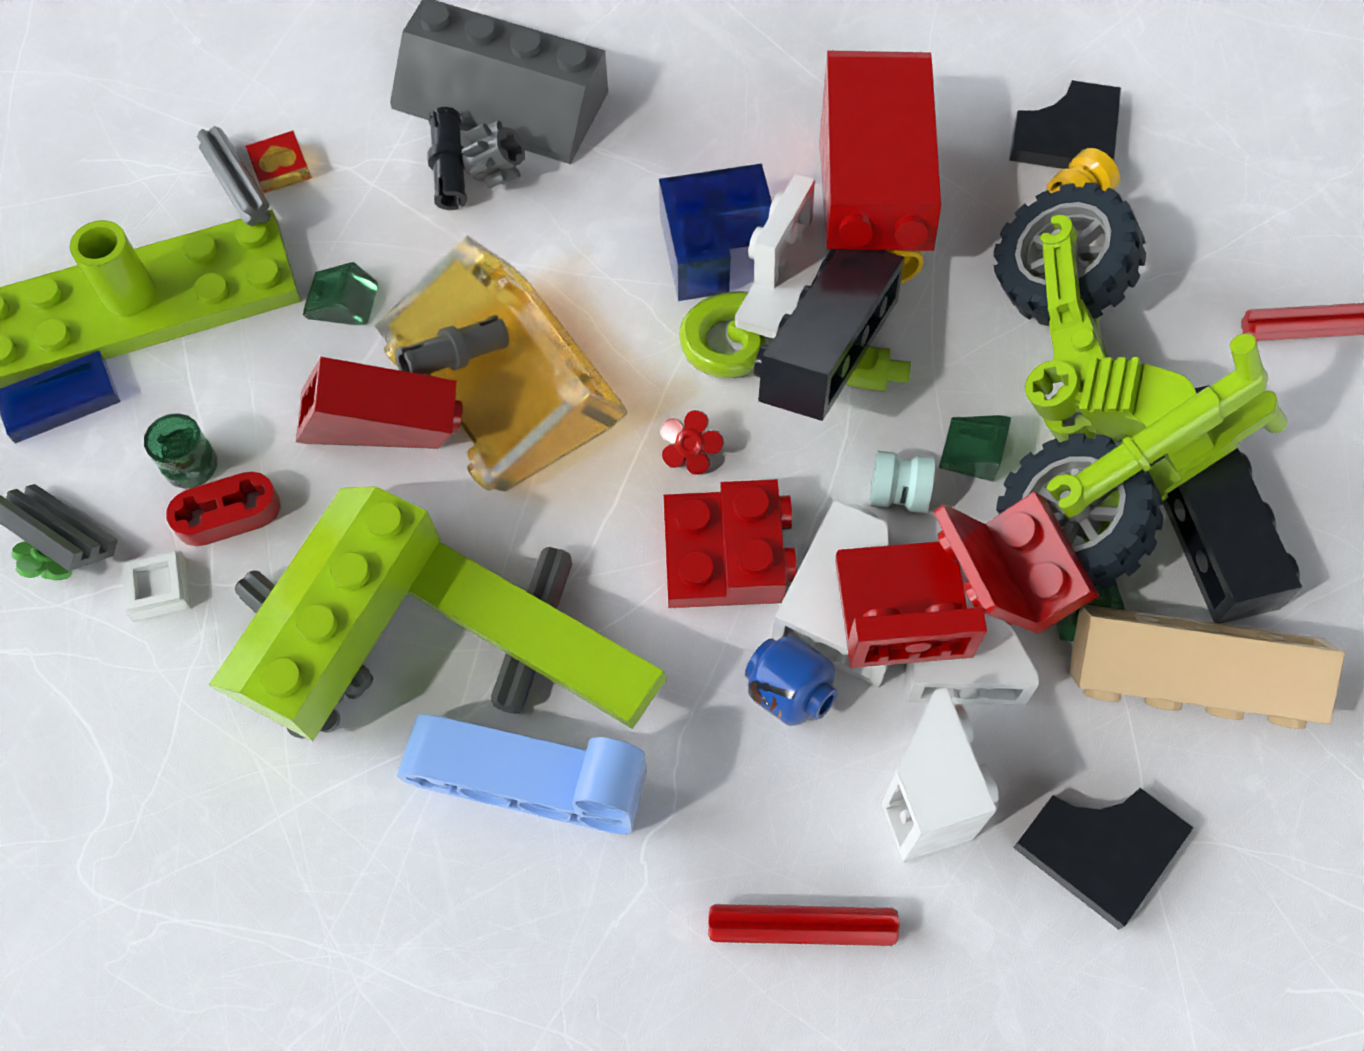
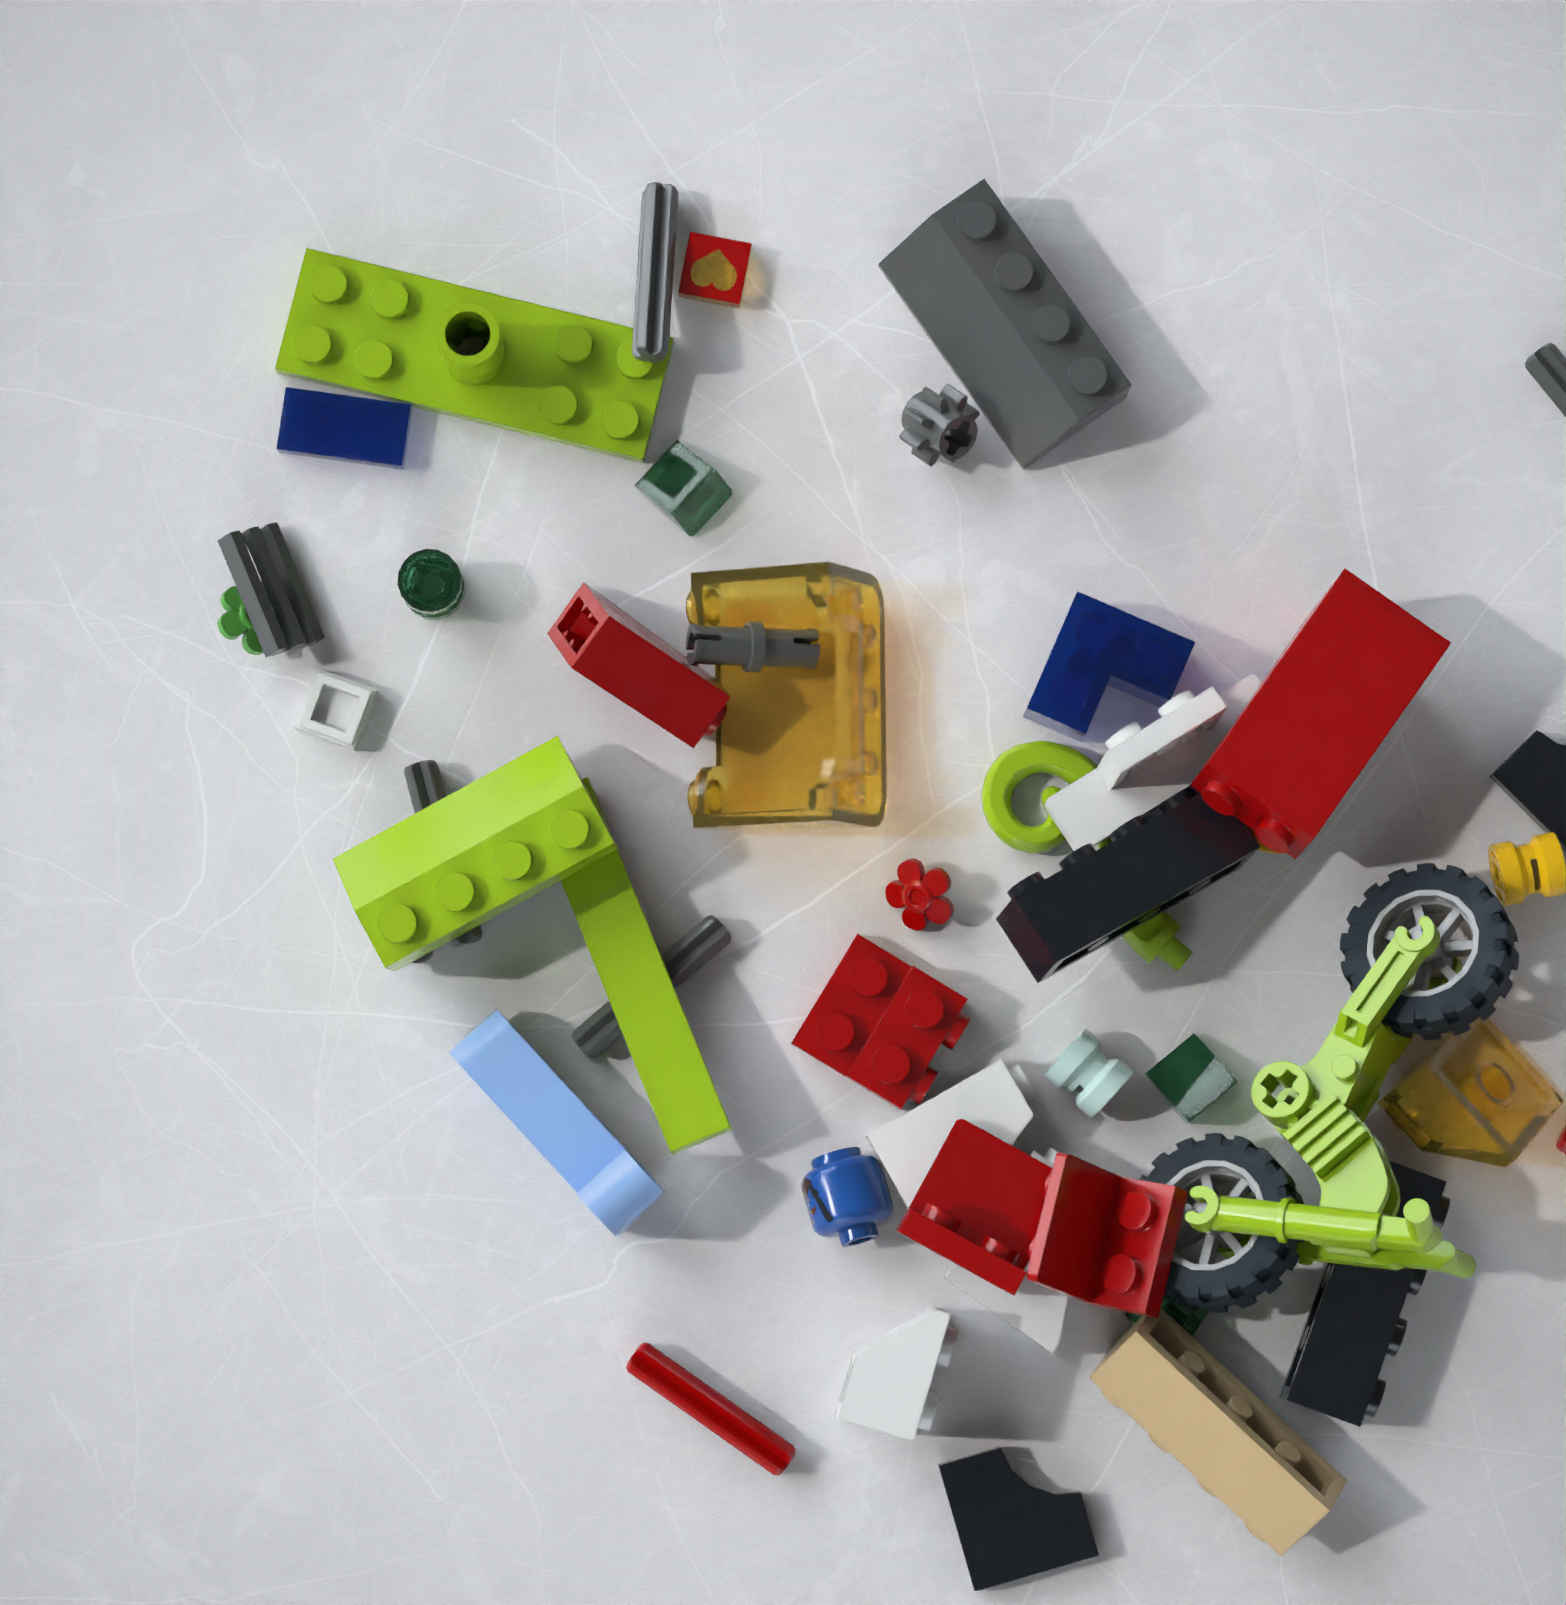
camera: 30 degrees right, 20 degrees up
(223, 508) = (443, 654): red beam -> none
(446, 158) = (892, 389): black pin -> none
(1171, 332) = (1472, 1098): none -> clear yellow slope

